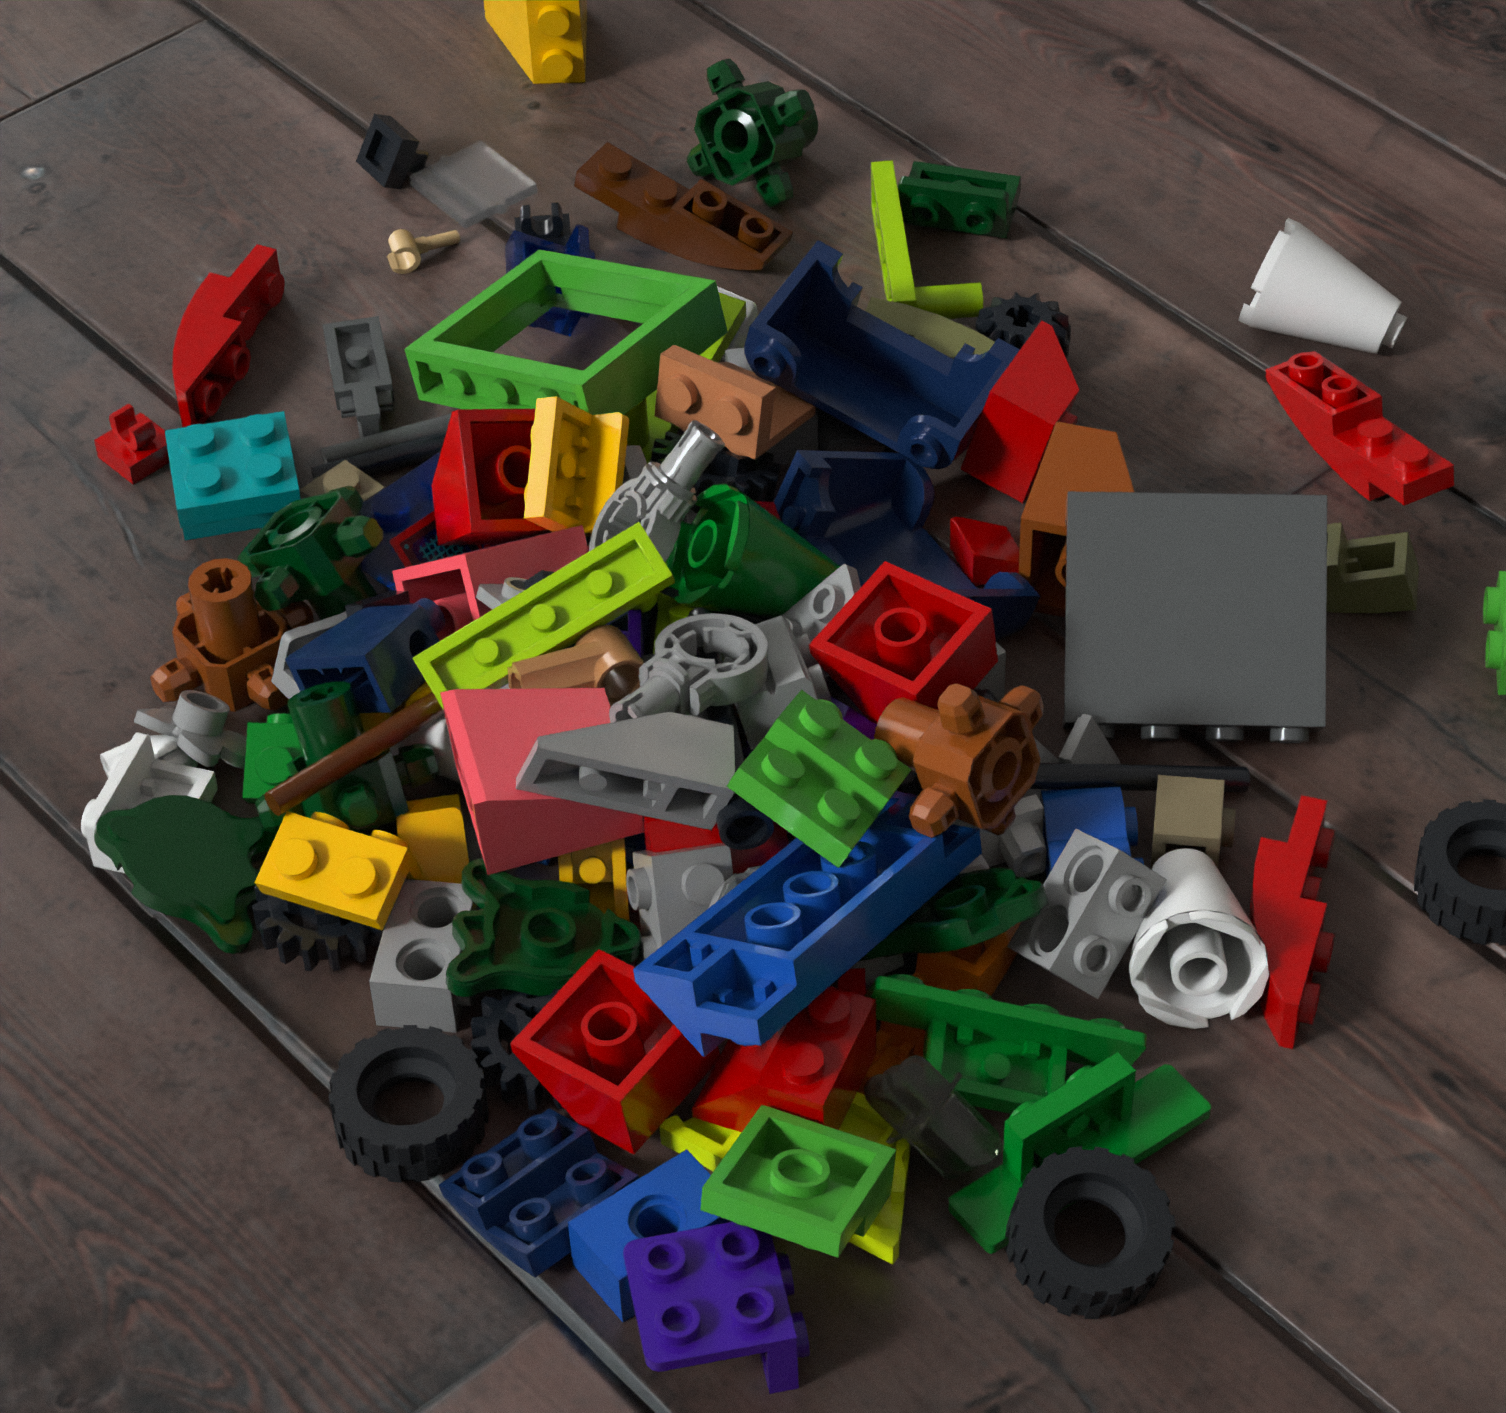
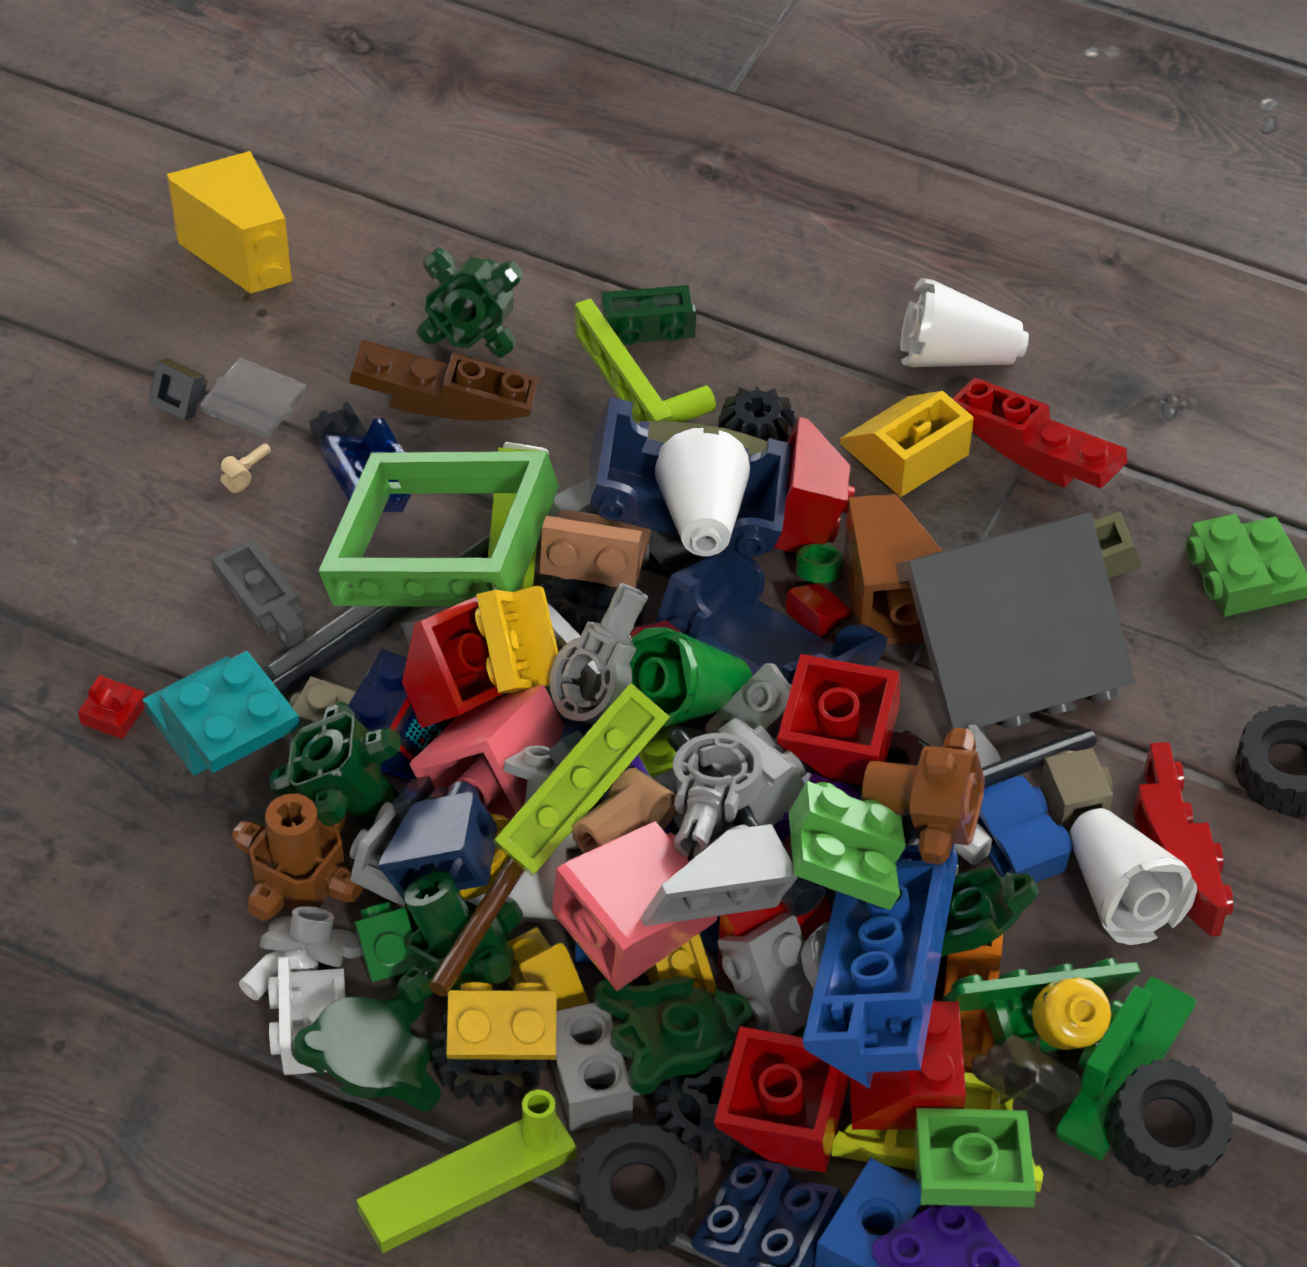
camera: 25 degrees left, 5 degrees up
(213, 331) = (131, 592): red slope -> none
(233, 1033) = (469, 1175): none -> lime piece
(890, 368) = (703, 487): none -> white cone
(1005, 500) = (819, 563): none -> green tile
(1016, 1058) = (1071, 1013): none -> yellow head
(1091, 913) = (1065, 885): light grey brick -> none
(1199, 402) = (912, 440): none -> yellow slope

